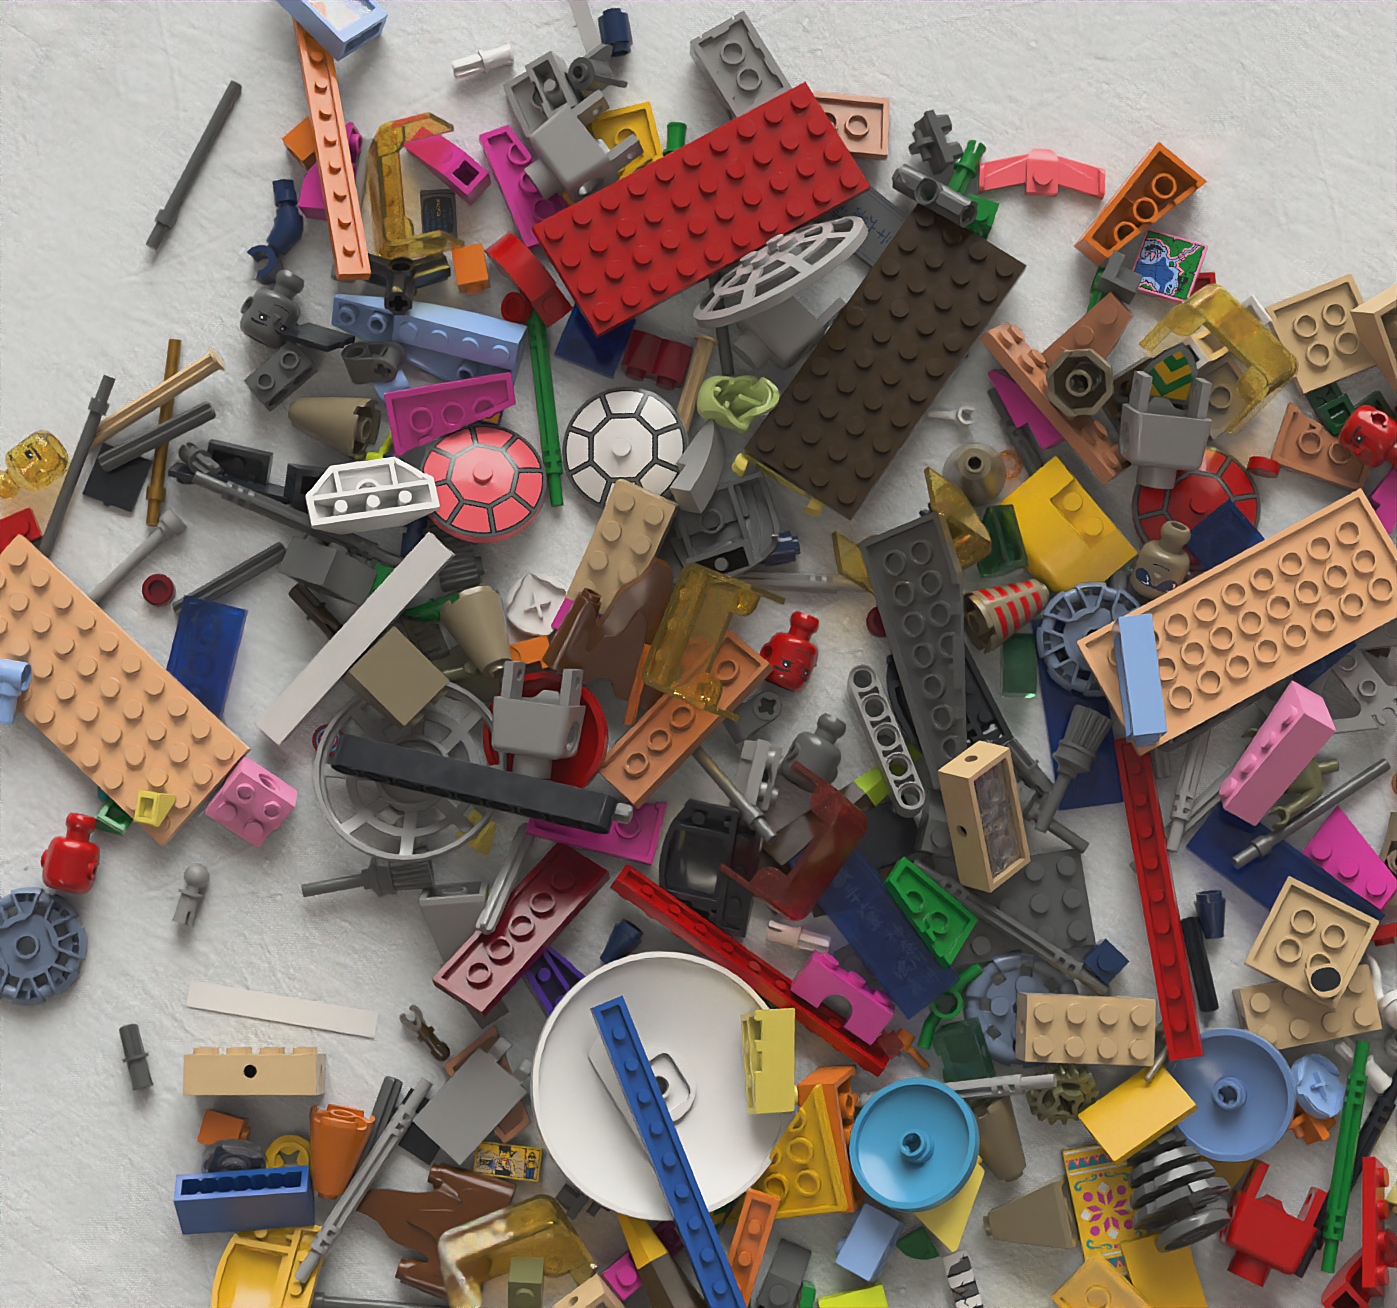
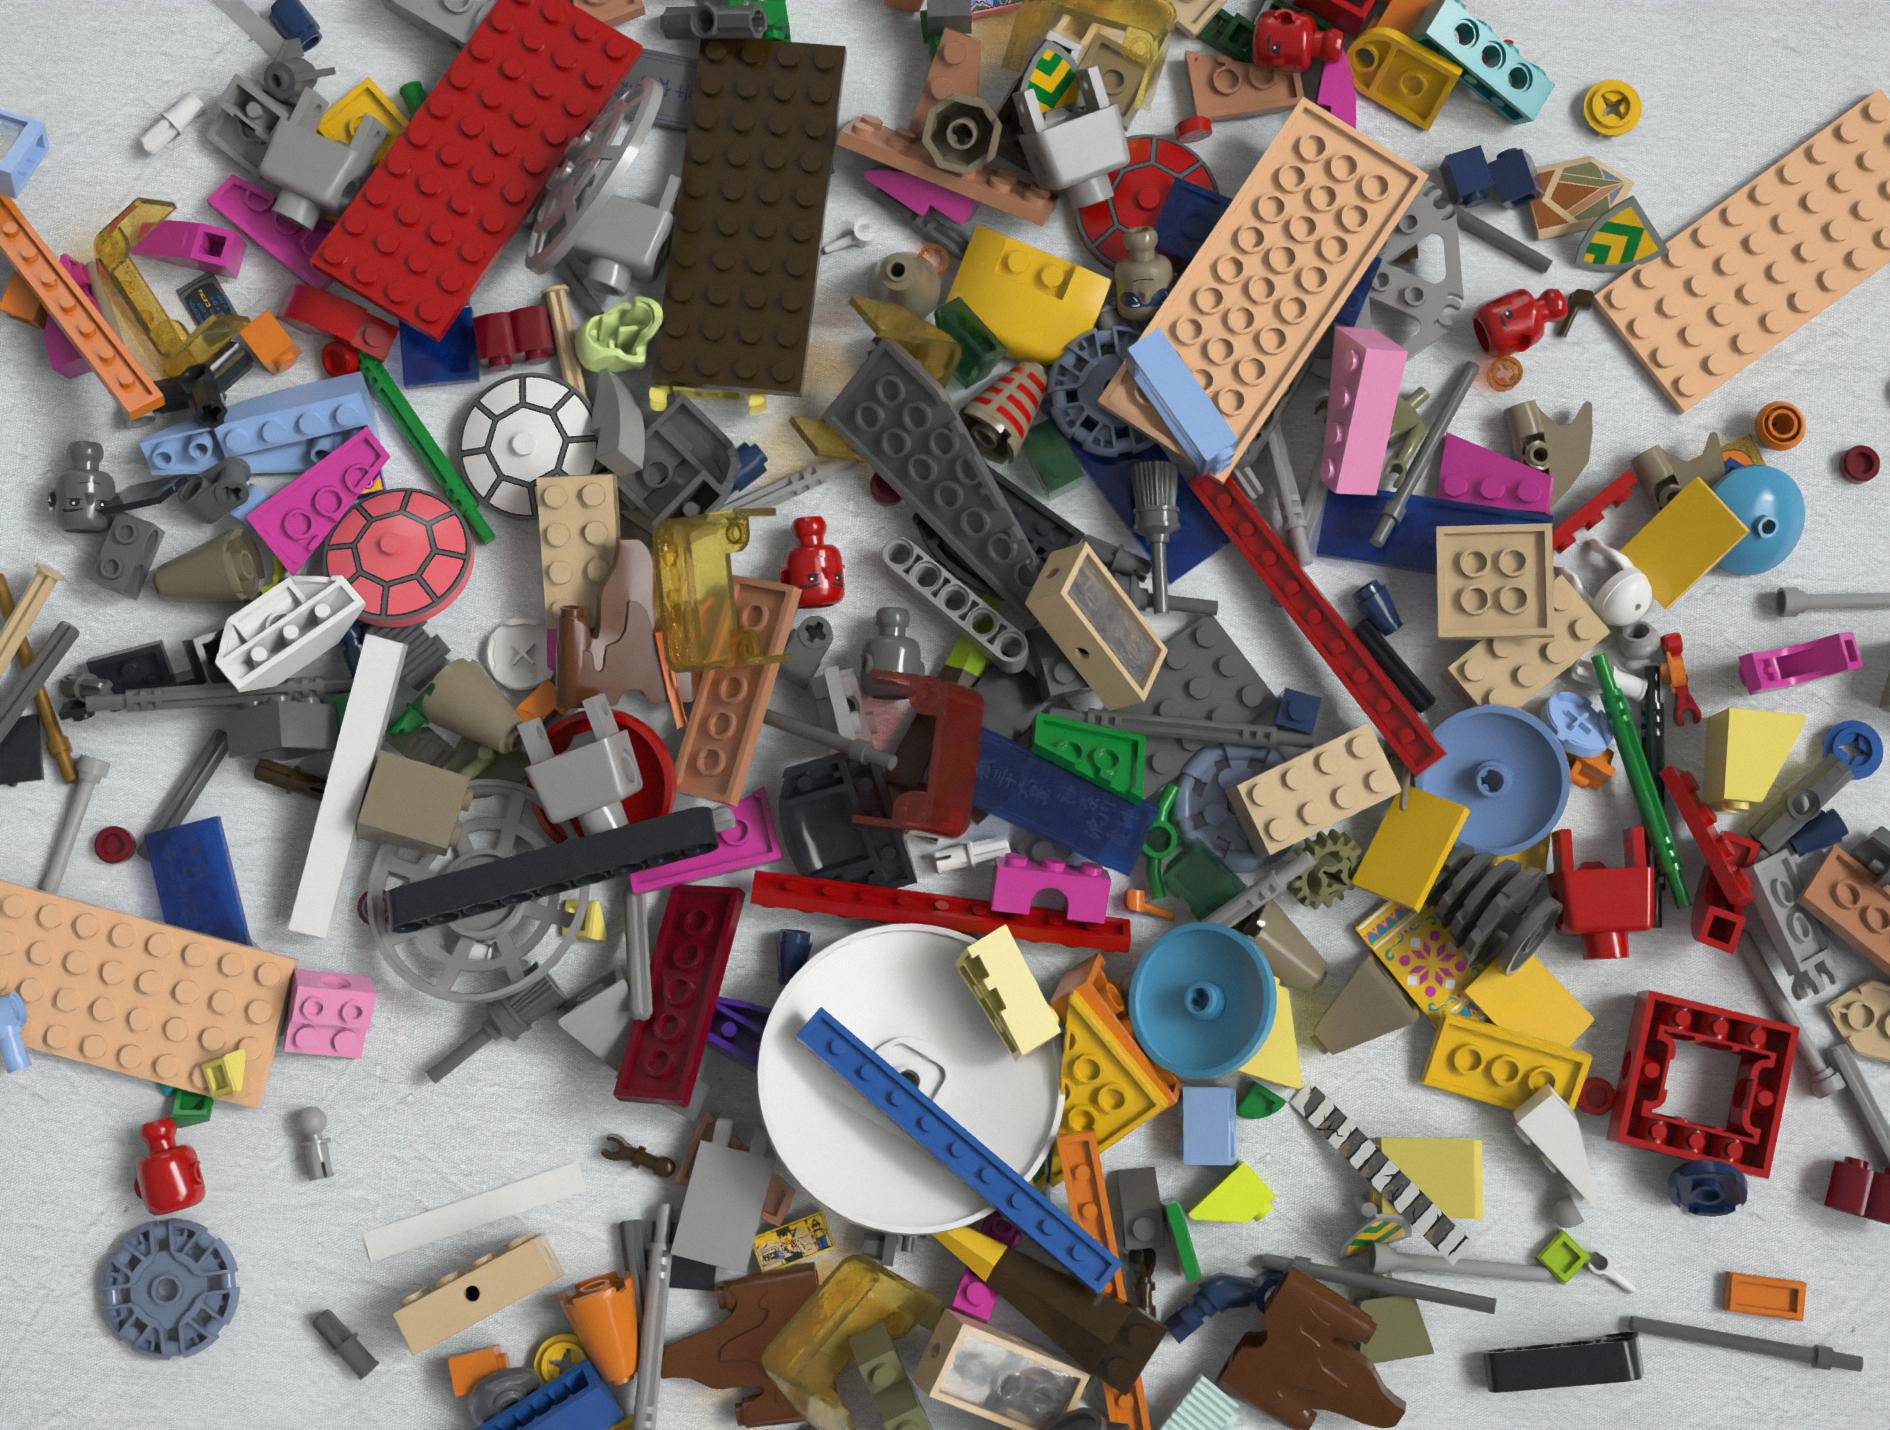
camera: 30 degrees left, 0 degrees up
(285, 233) = (54, 407): dark blue piece -> none
(890, 1044) = (1123, 911): clear red plate -> none
(1325, 980) = (1528, 611): tile -> none

